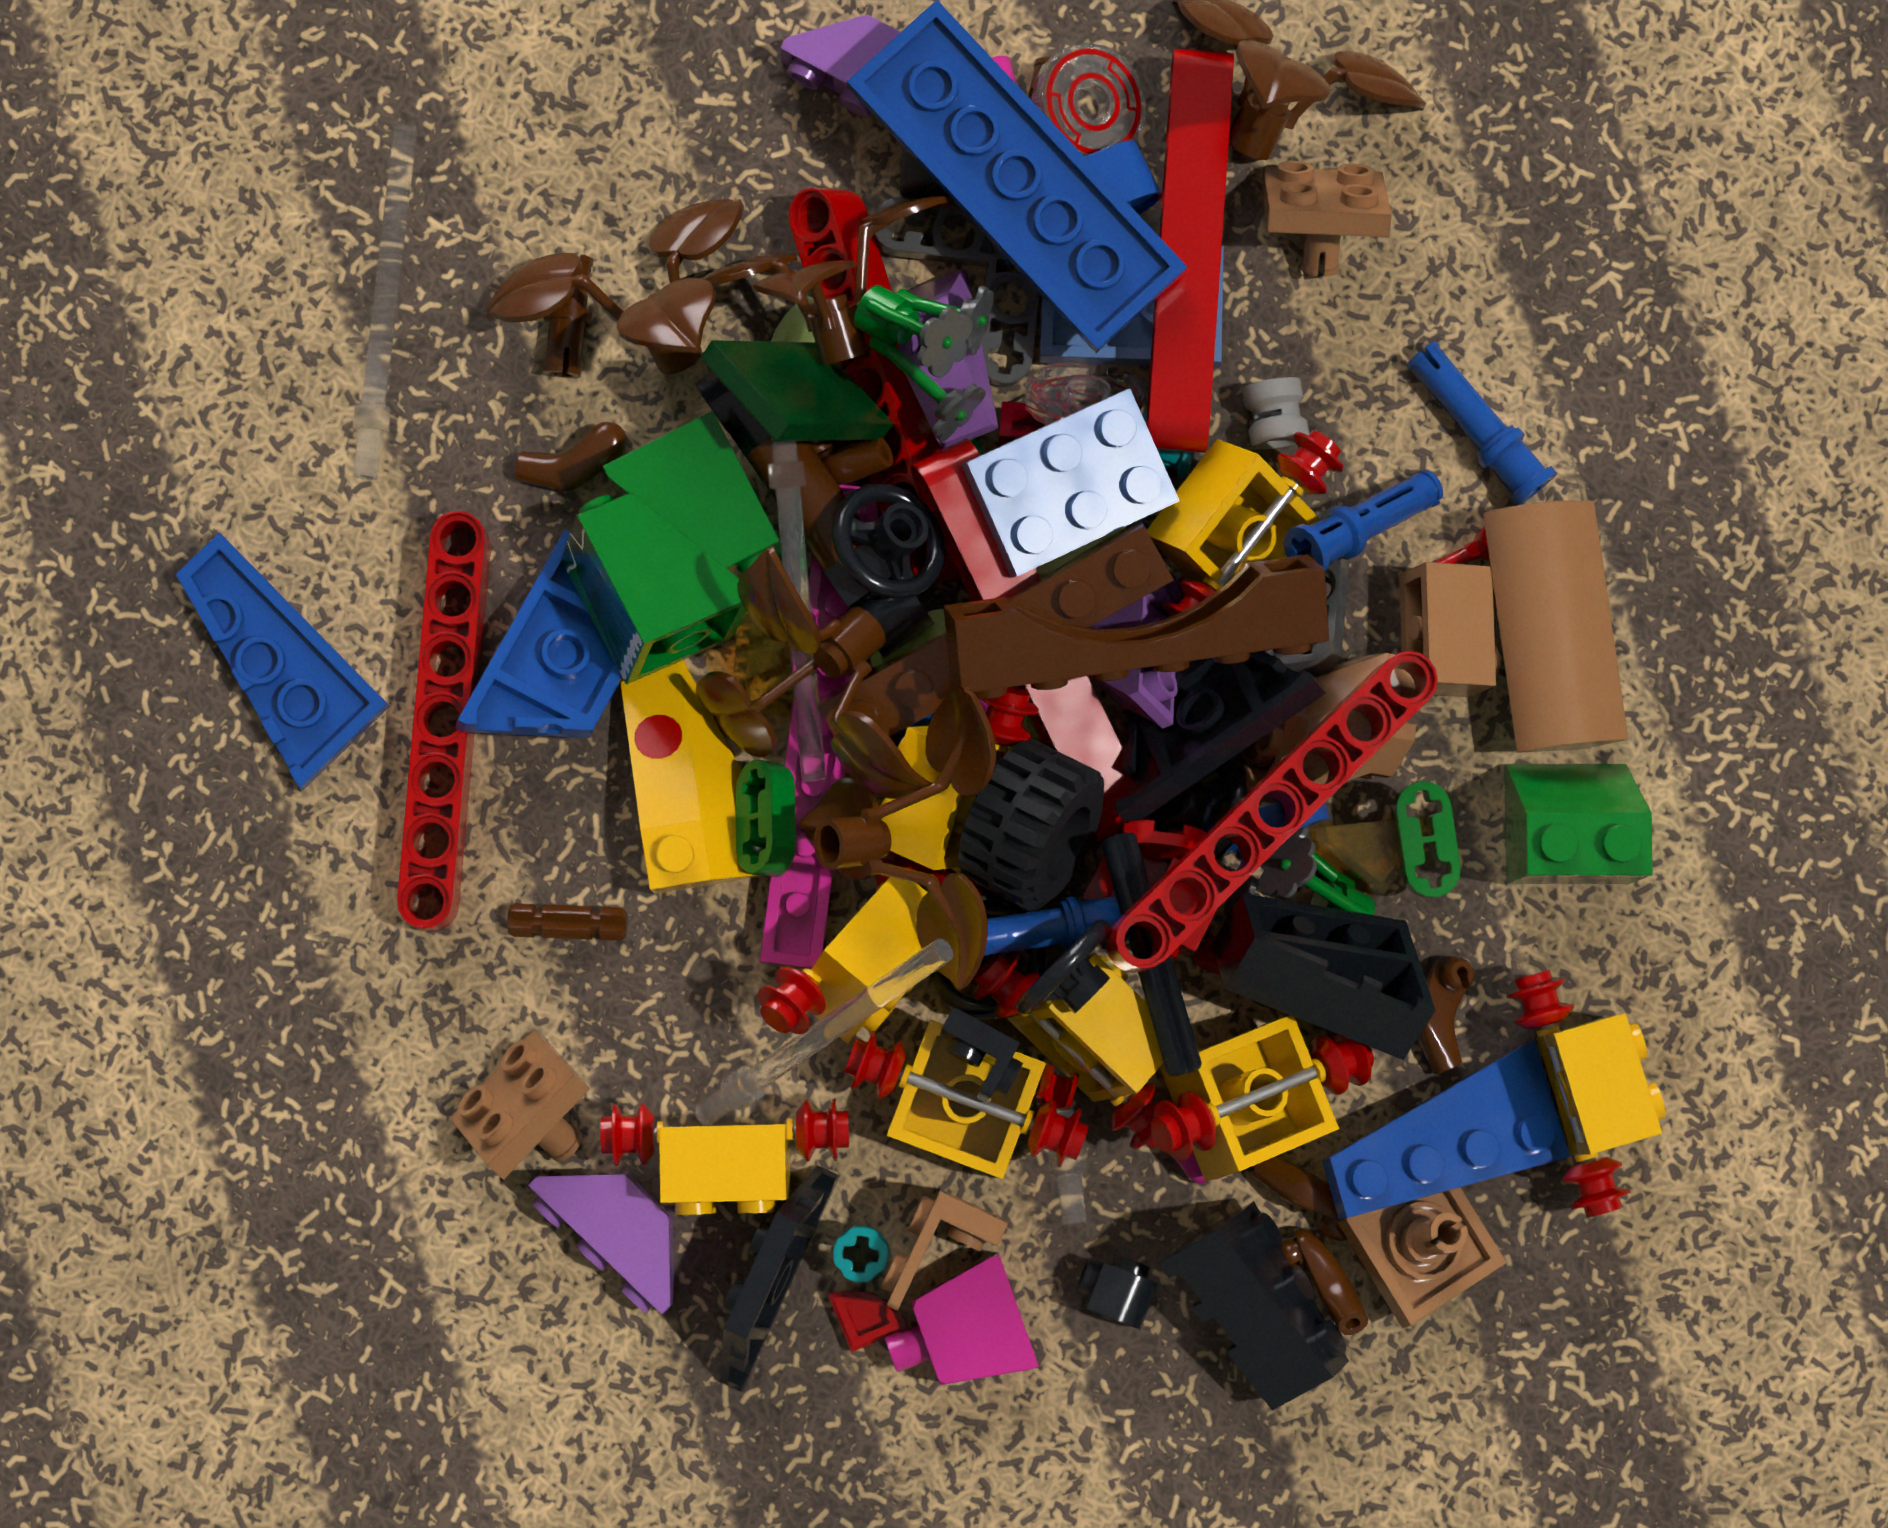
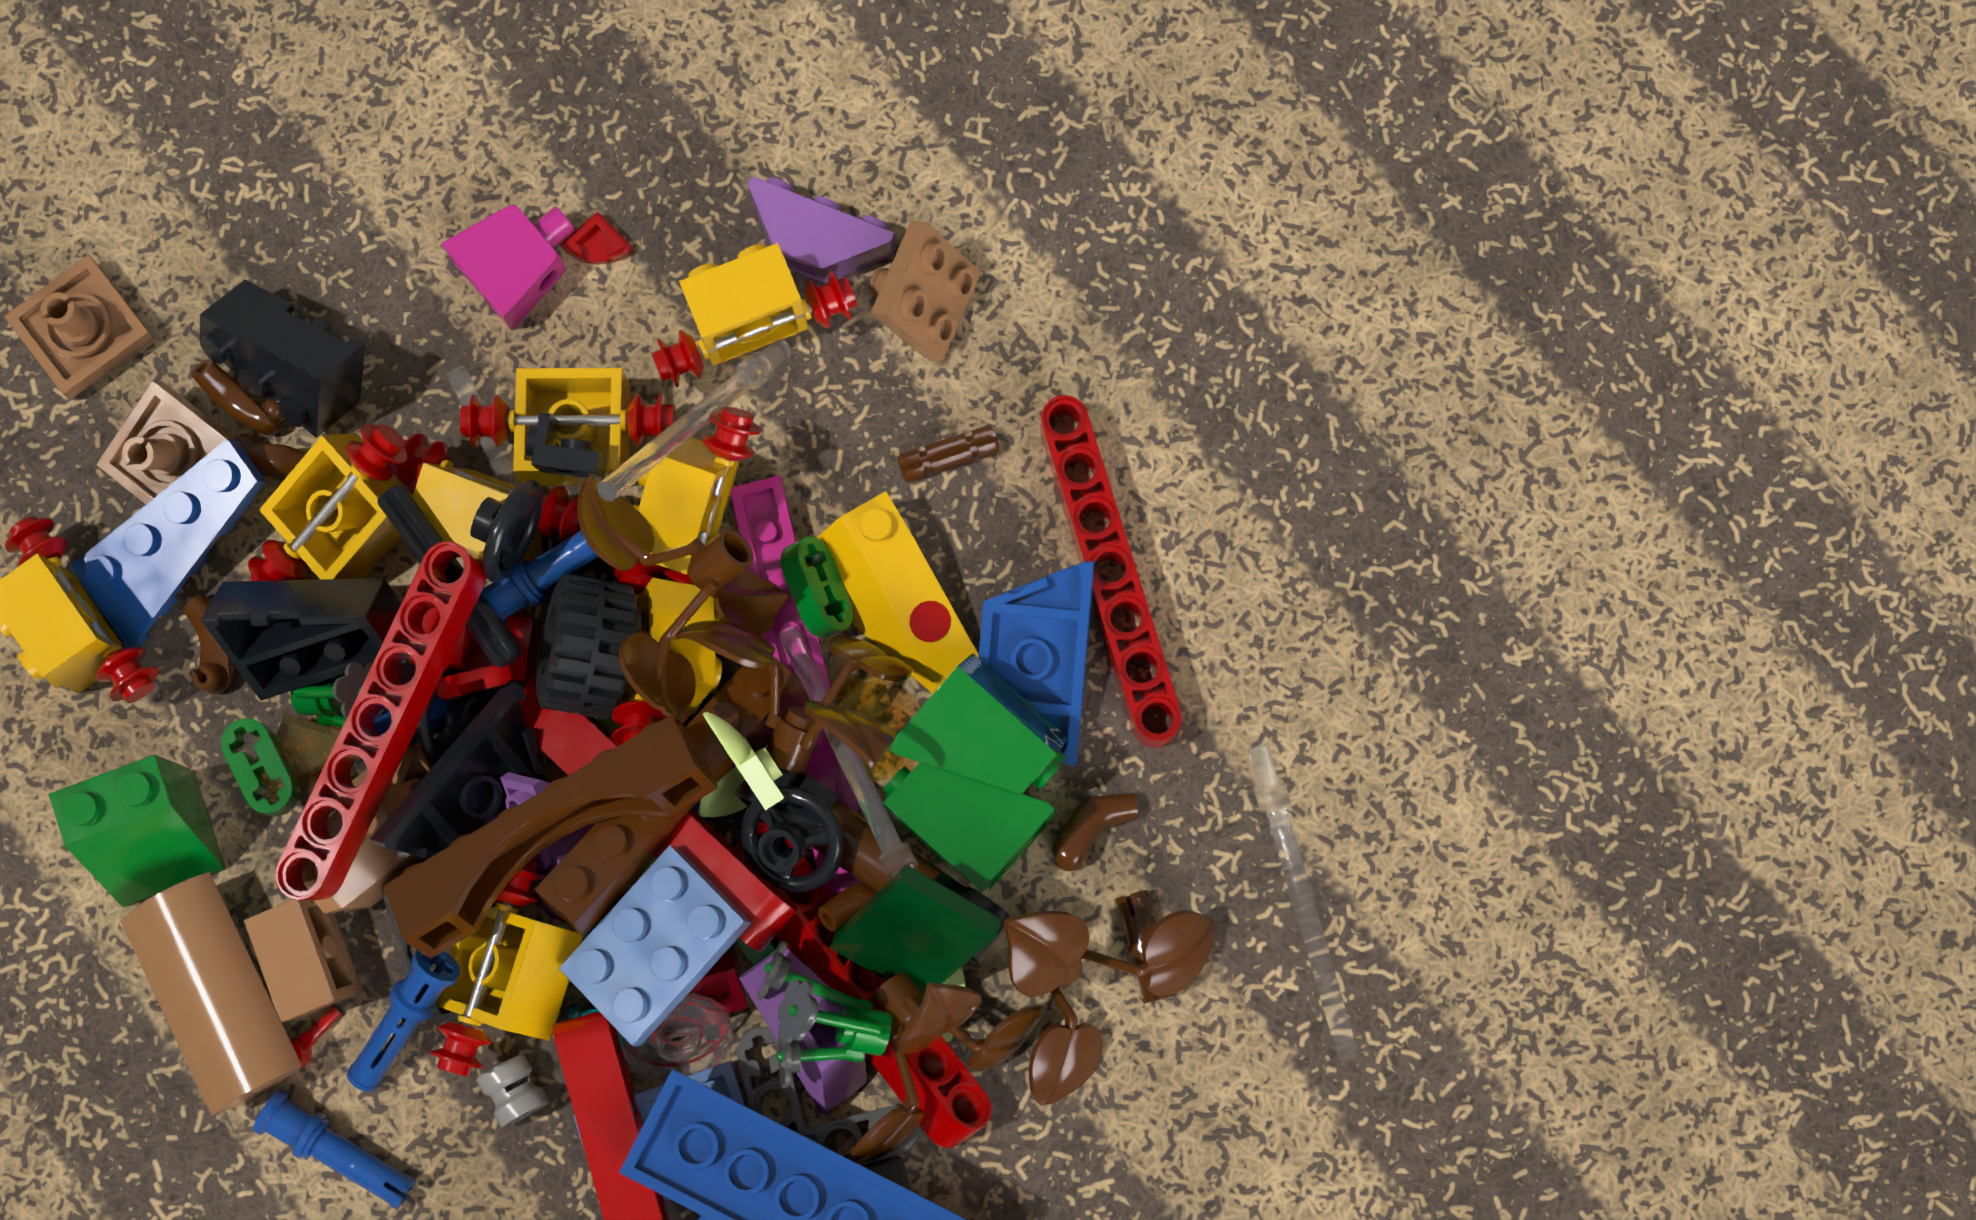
camera: 160 degrees right, 5 degrees down
(291, 674) = (1252, 566): blue wing -> none
(777, 1255) = (679, 248): black wing -> none
(846, 1264) = (630, 287): teal bush -> none
(897, 619) = (756, 768): none -> yellowish green plate
(968, 1225) = (554, 333): medium nougat bracket -> none
(1057, 1088) = (500, 460): red hand -> none
(1117, 1290) = (403, 329): black plate -> none
(1478, 1435) = (79, 327): none -> medium nougat plate

